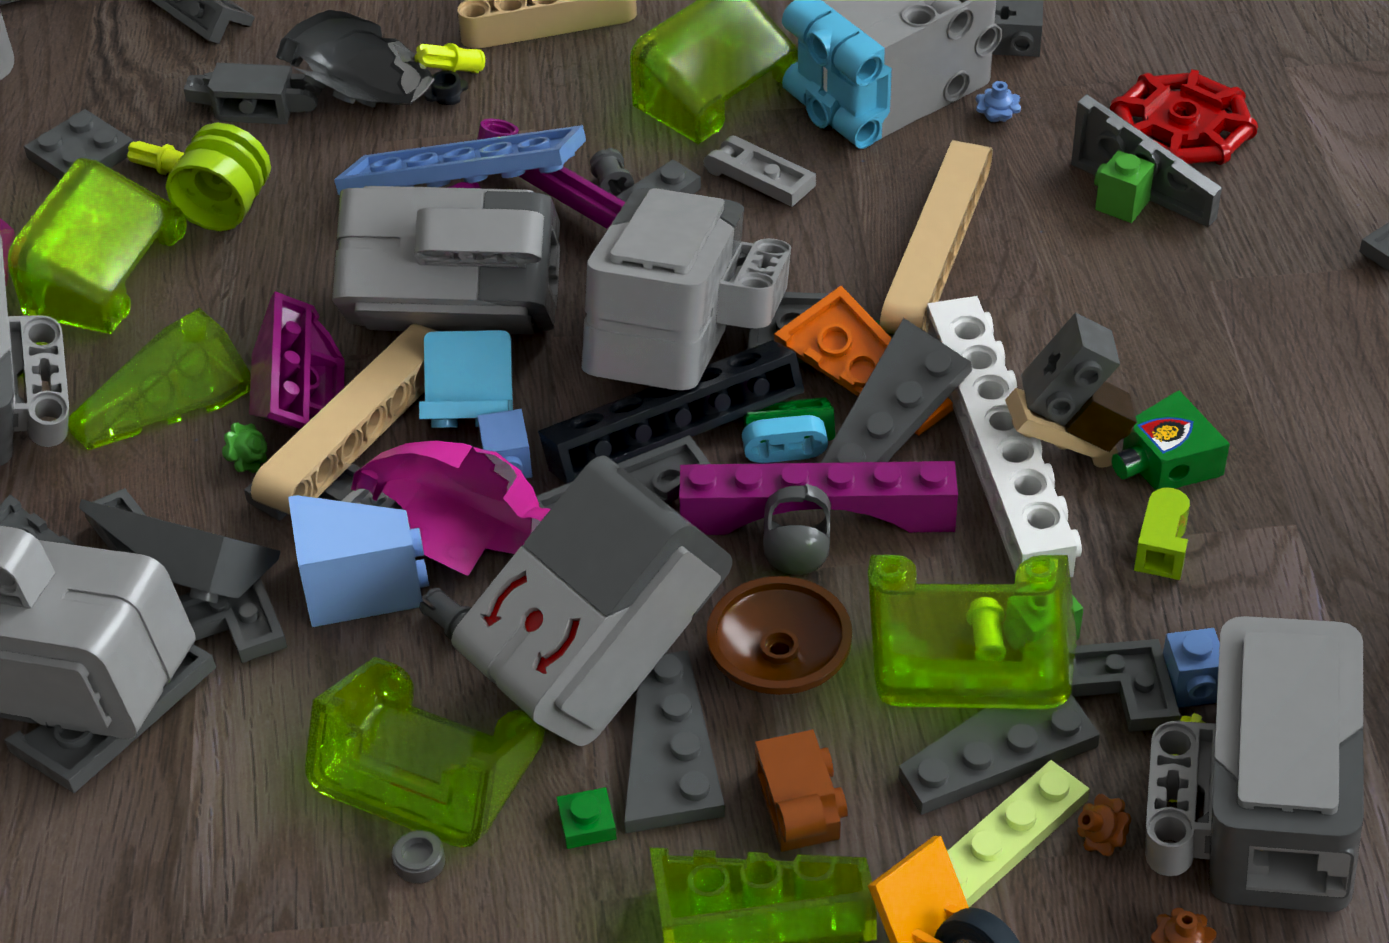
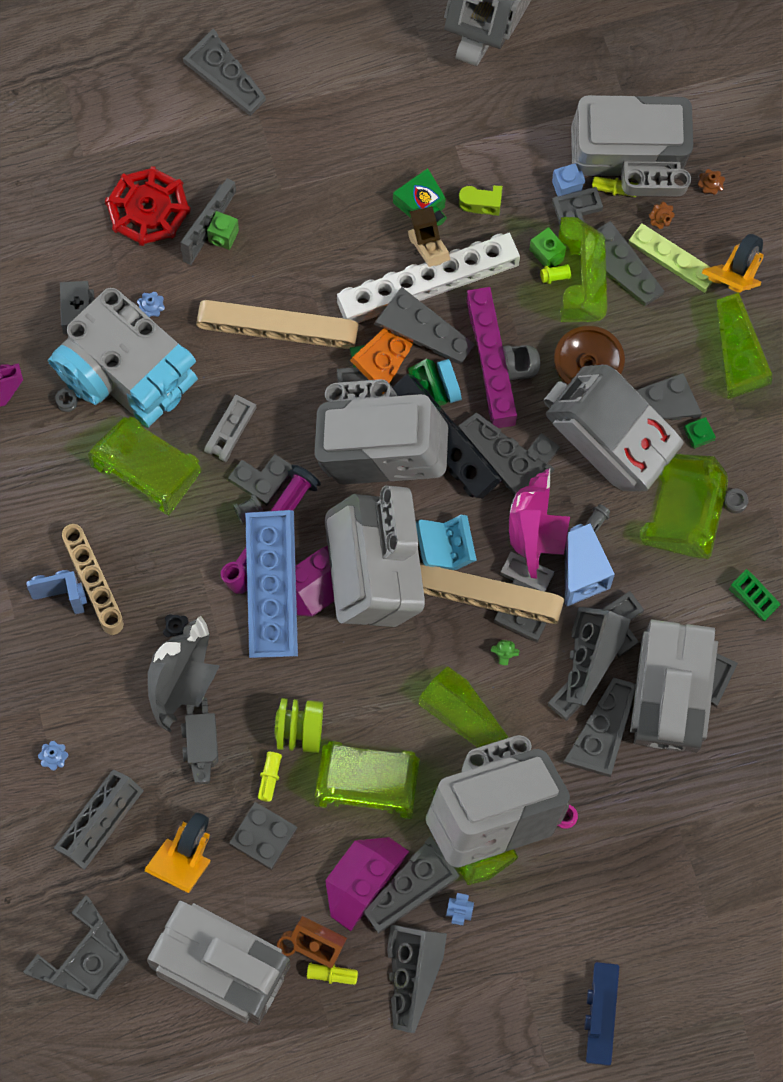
camera: 105 degrees left, 25 degrees up
(83, 53) = (175, 858): none -> light orange plate
(209, 825) = (754, 583): none -> green slope
(293, 364) = (454, 637): magenta wedge -> none
(450, 58) = (157, 623): neon yellow axle -> none
(507, 435) = (486, 514): medium blue brick -> none
(799, 790) = (673, 341): dark orange hinge -> none
(1070, 369) = (420, 230): dark grey brick -> none

